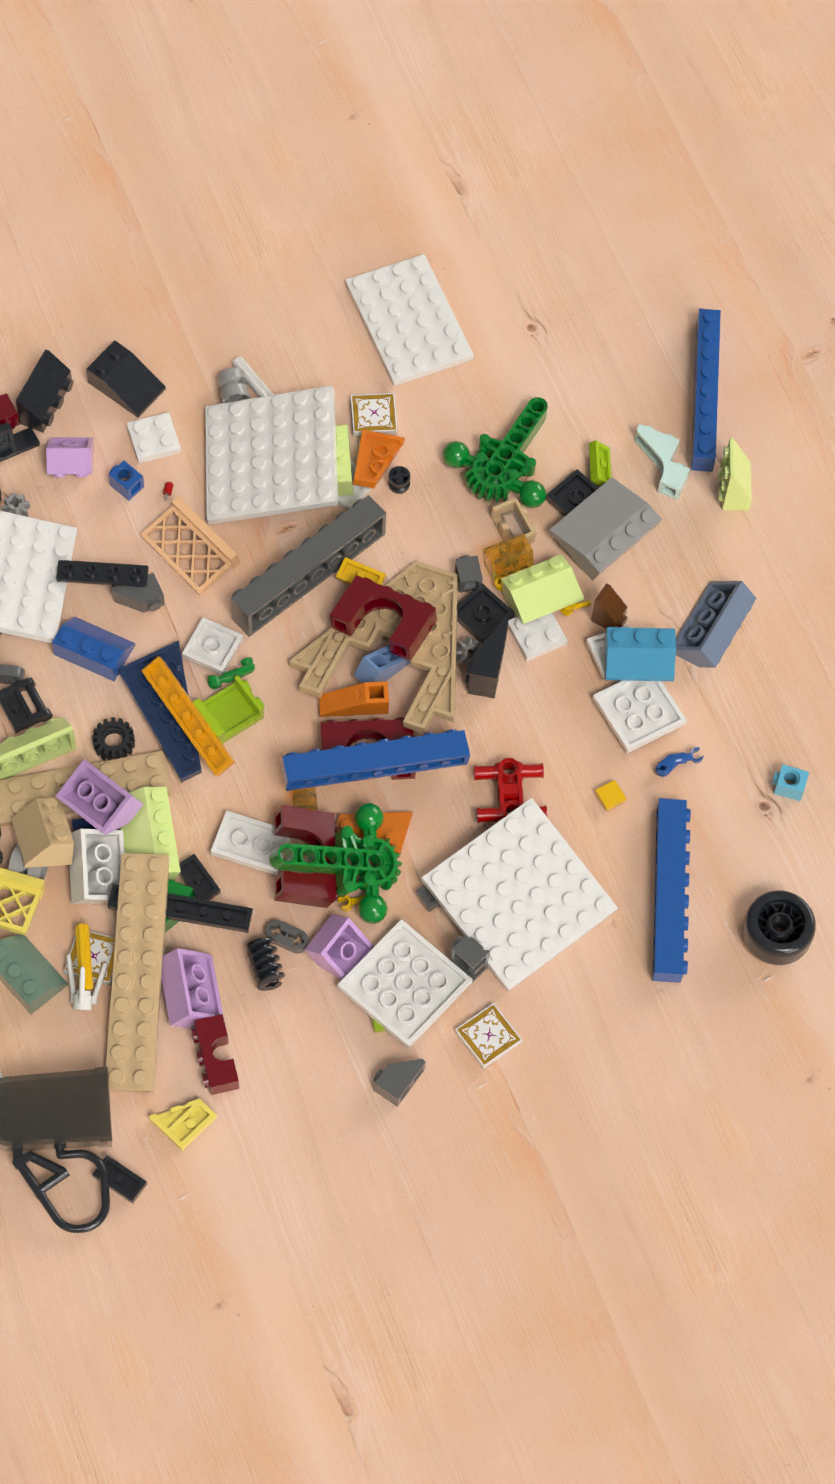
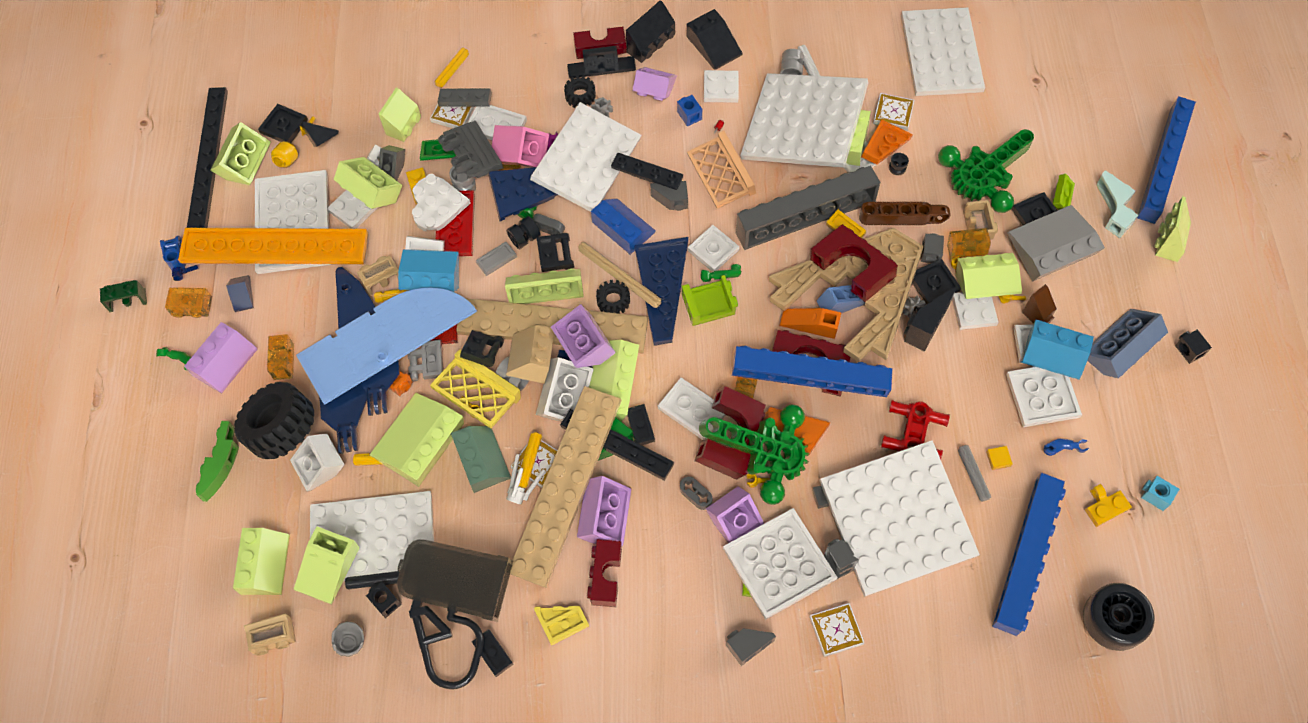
camera: 25 degrees right, 0 degrees up
(111, 709) = (620, 275): none -> tan axle
(188, 716) = (675, 296): light orange tile -> none
(264, 963) = (669, 510): black piece -> none
(415, 546) = (895, 213): none -> reddish brown piece
(587, 820) = (974, 473): none -> light grey axle
(739, 815) = (1106, 507): none -> yellow plate
(787, 606) = (1193, 346): none -> black brick

